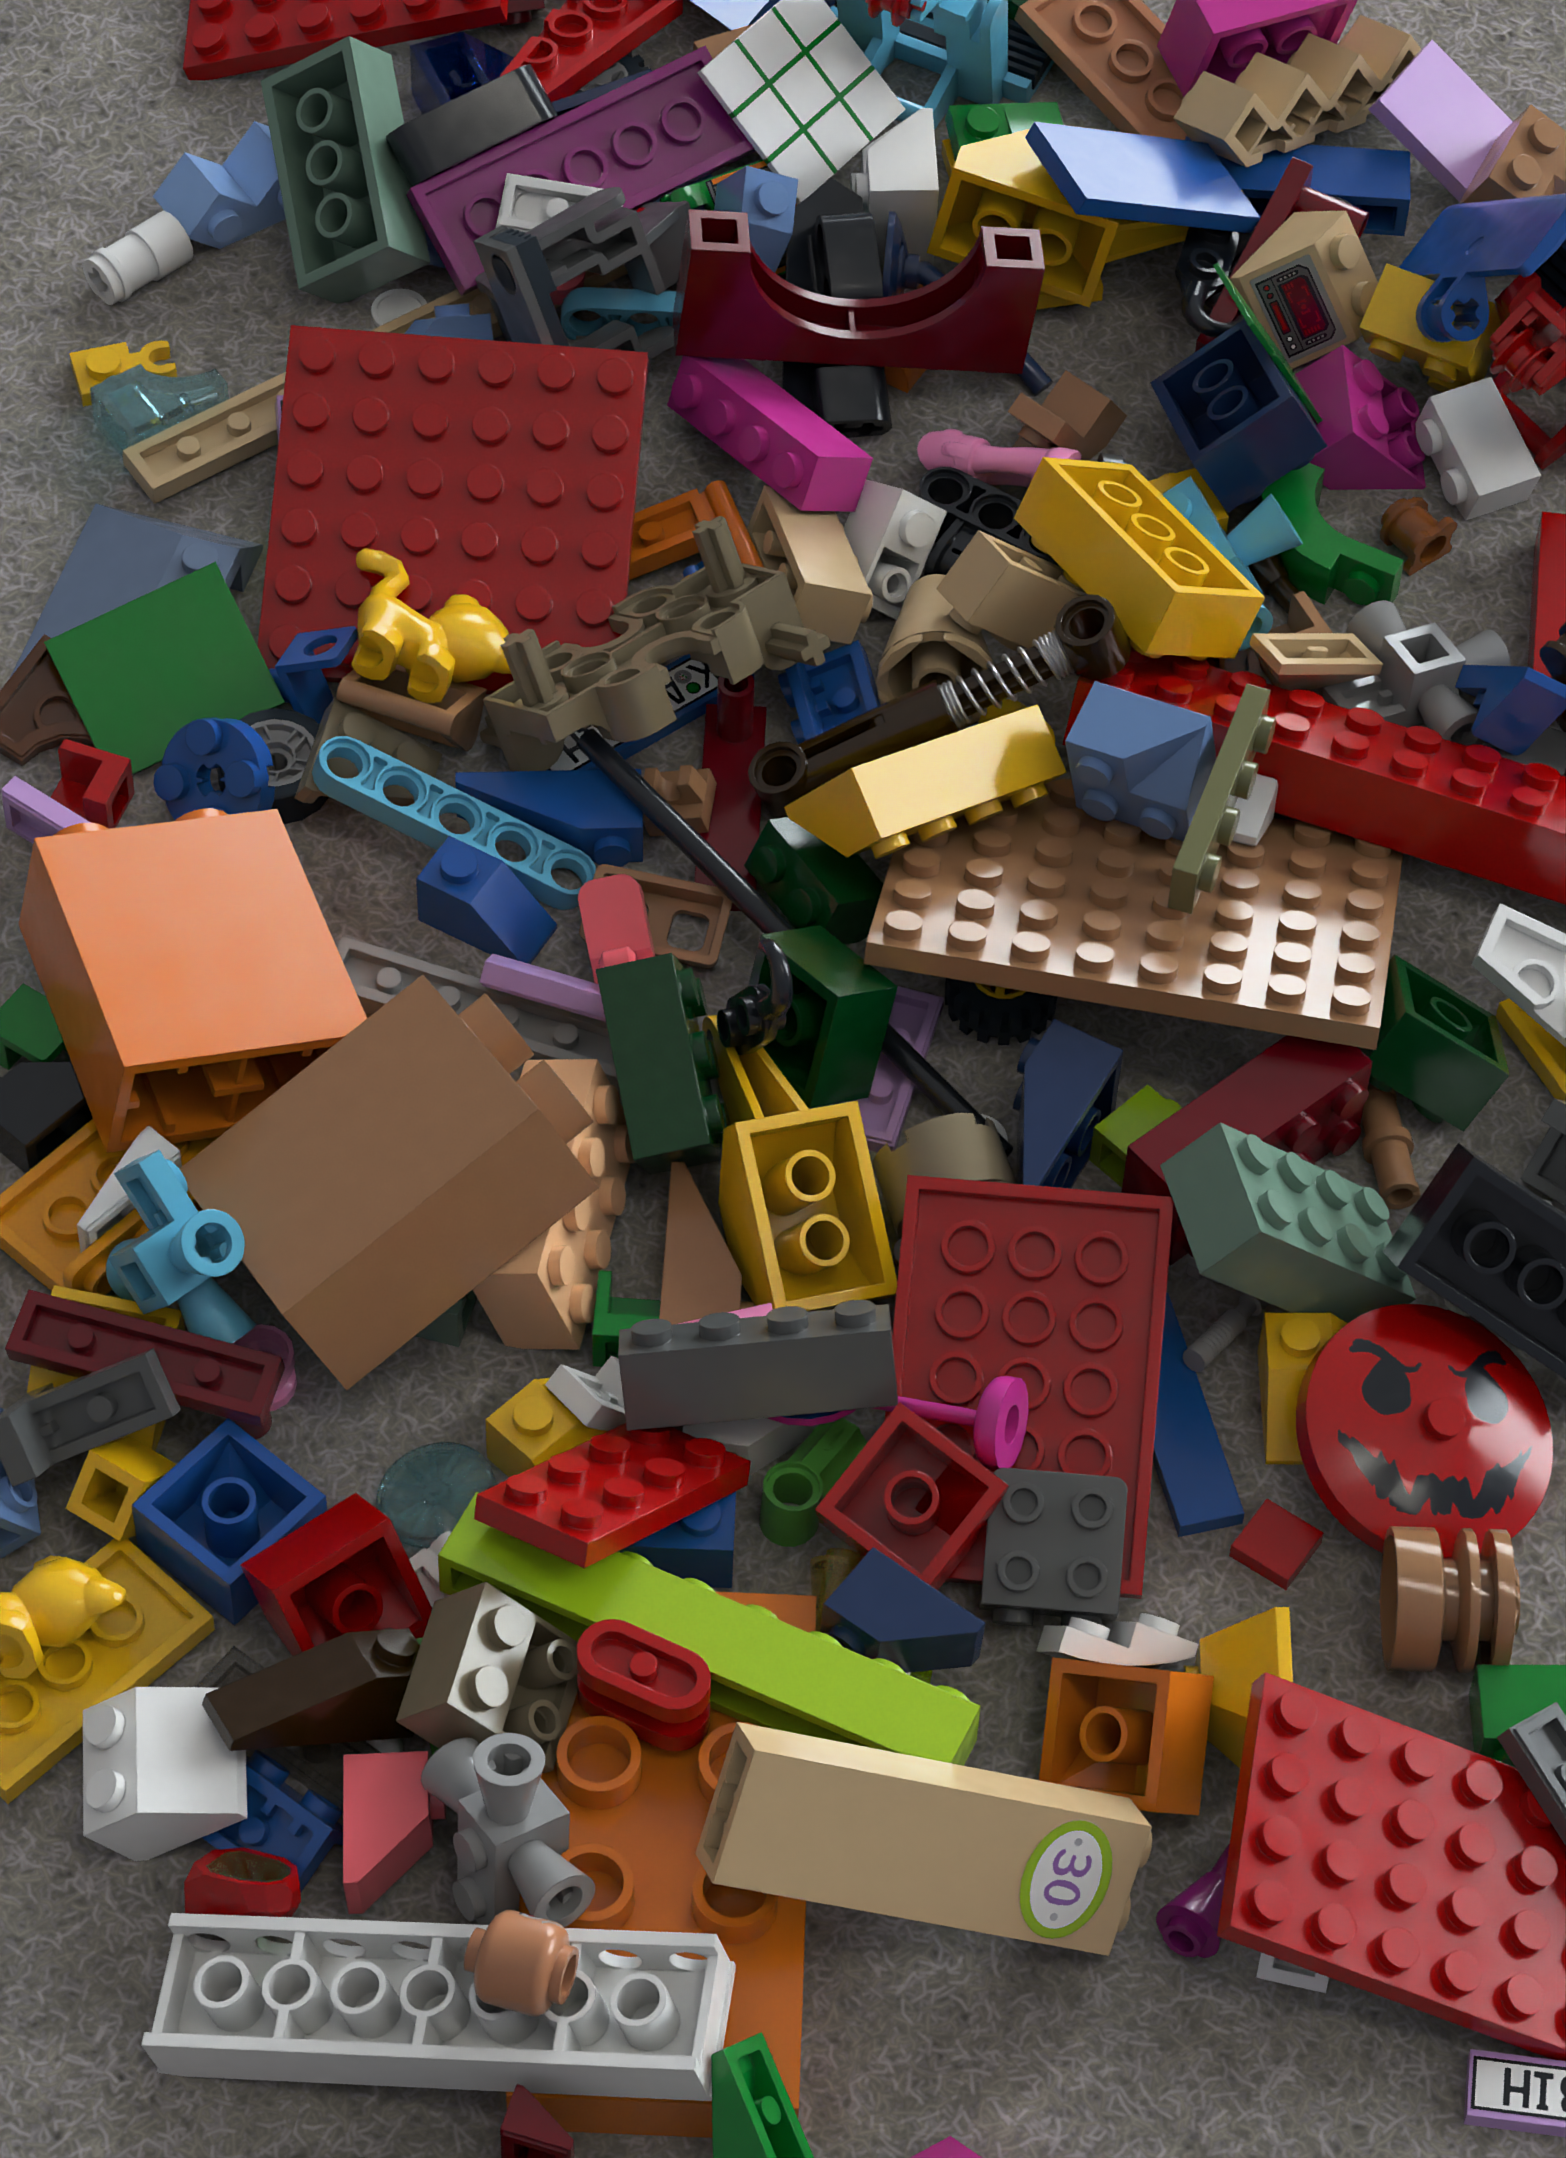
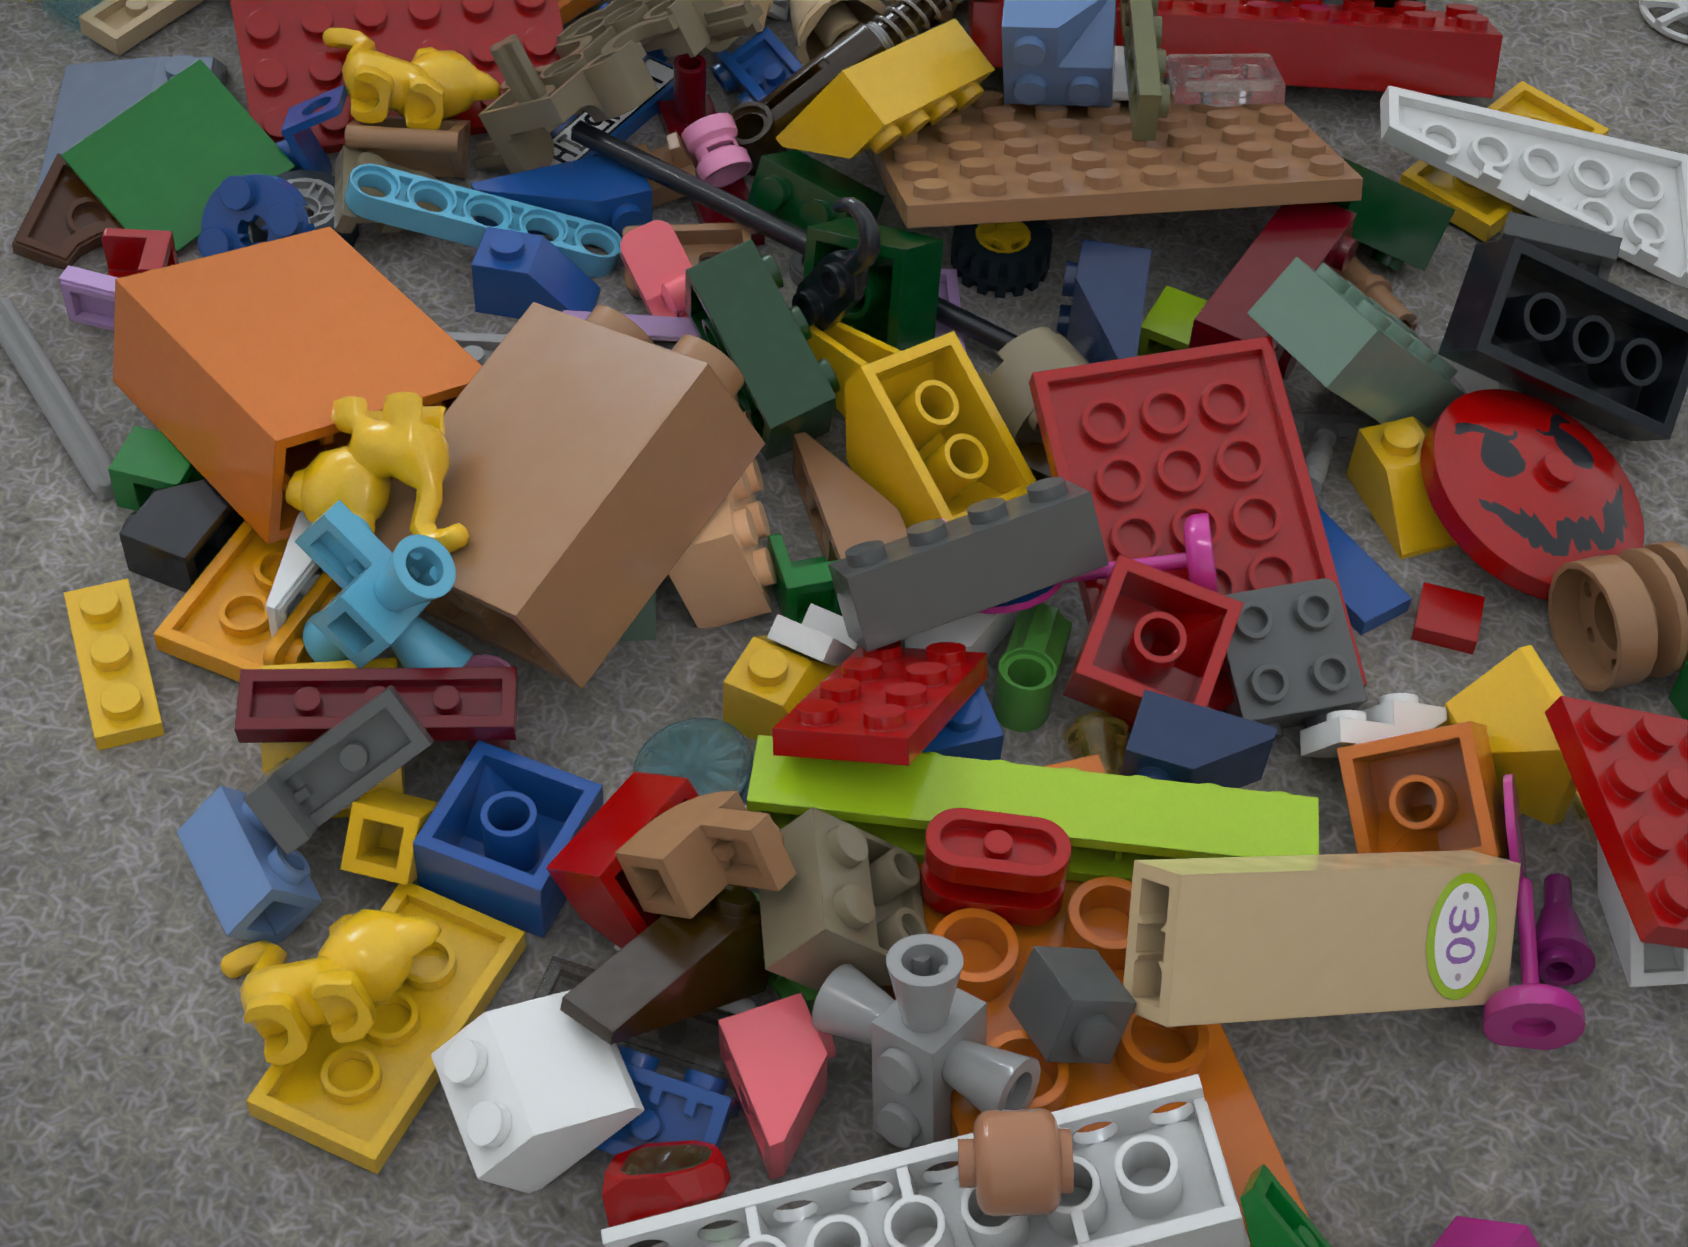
camera: 20 degrees left, 5 degrees down
(230, 1100) = (396, 442): none -> yellow animal
(373, 1592) = (701, 848): none -> medium nougat brick
(653, 1836) = (1071, 1005): none -> dark grey brick
(730, 796) = (717, 150): none -> bright pink wheel
(1195, 1814) = (1530, 1012): none -> dark pink piece
(1308, 832) = (1224, 79): none -> clear piece

